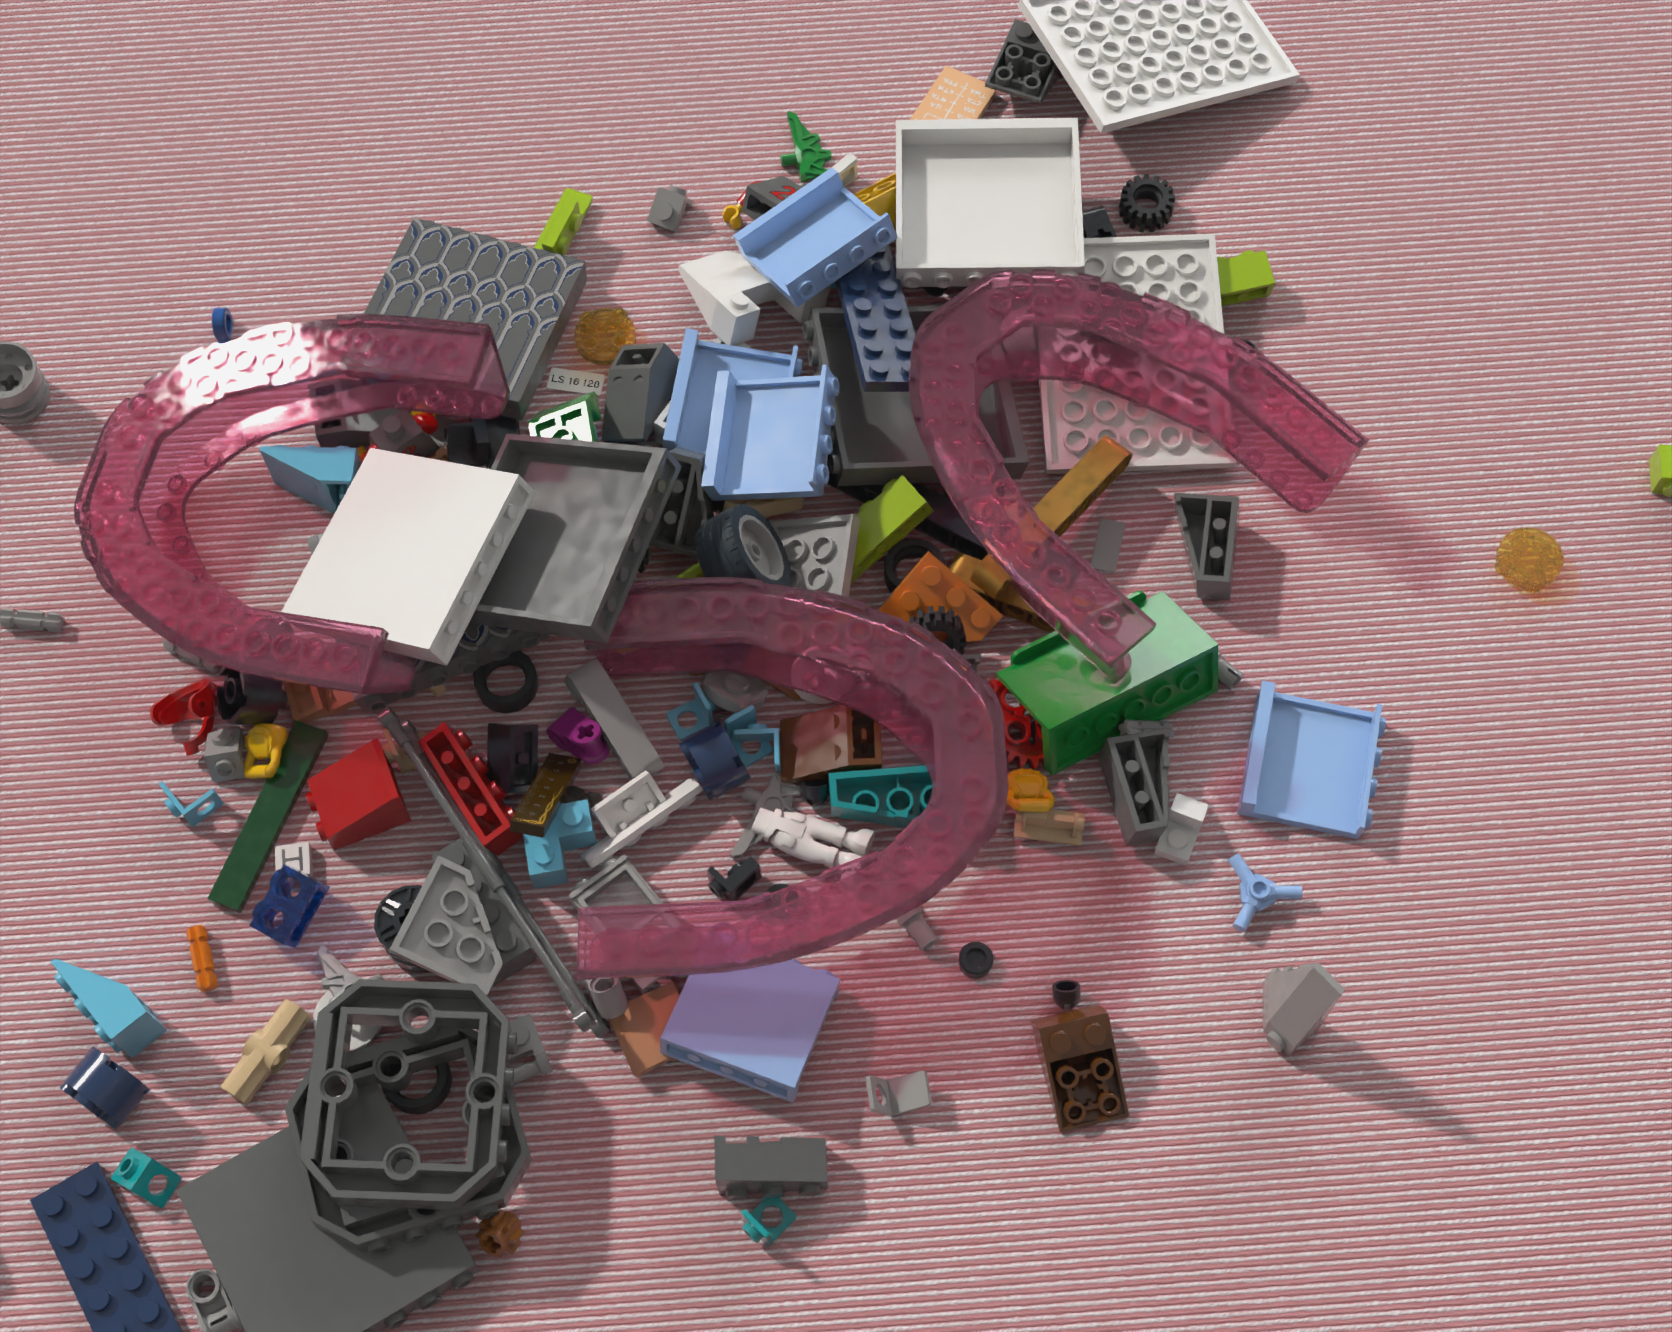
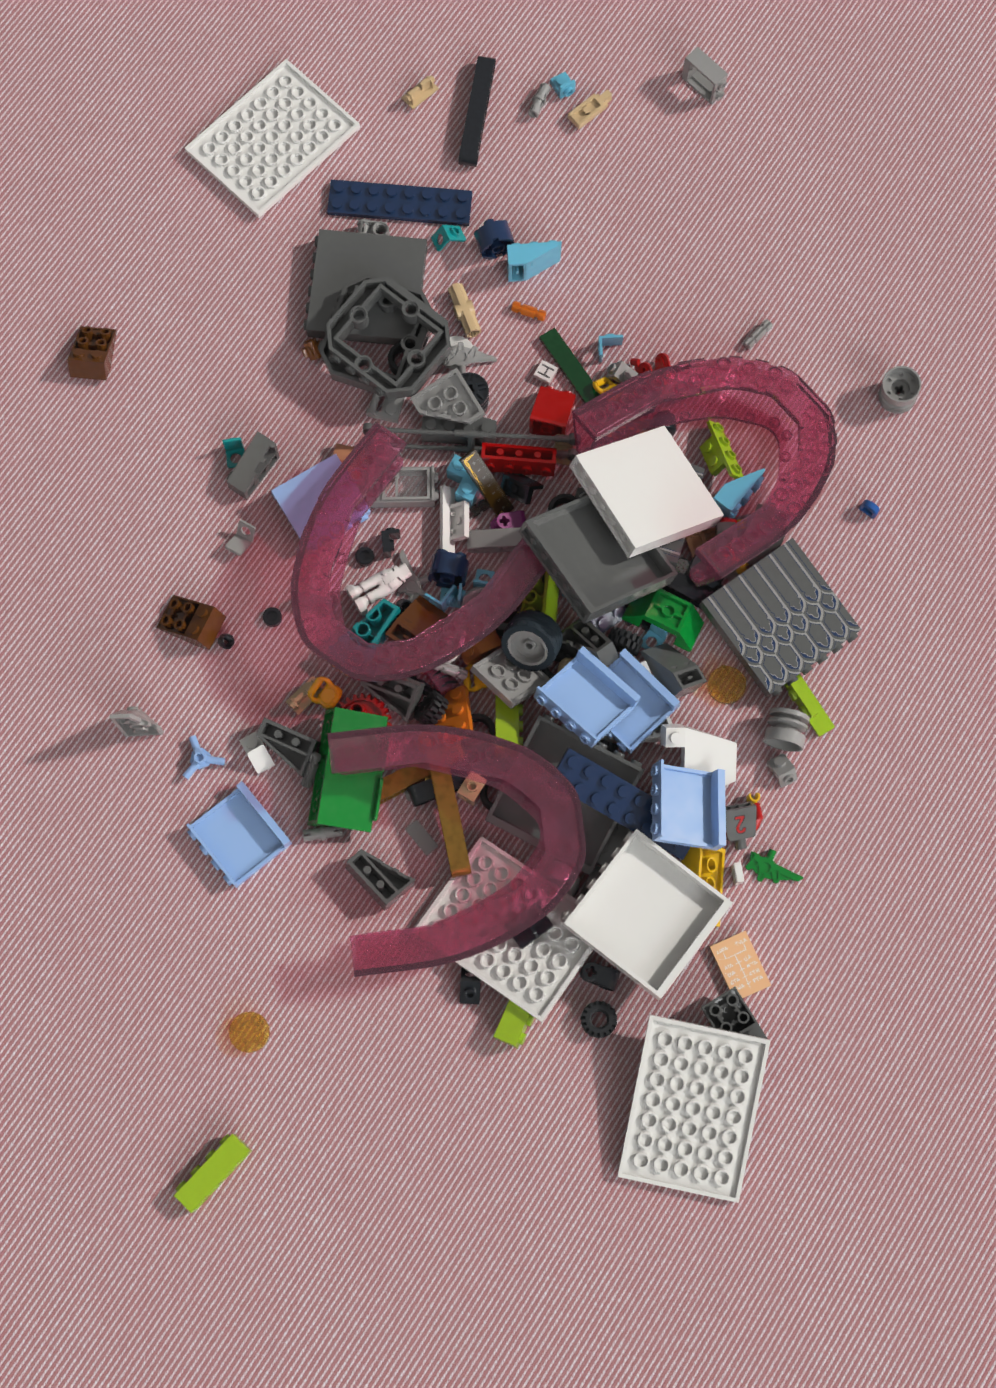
camera: 125 degrees right, 10 degrees up
(270, 539) = (718, 452): none -> lime bracket
(296, 911) = (522, 354): clear blue brick -> none
(575, 381) = (711, 654): white sticker -> none
(616, 222) = (786, 729): none -> light grey wheel

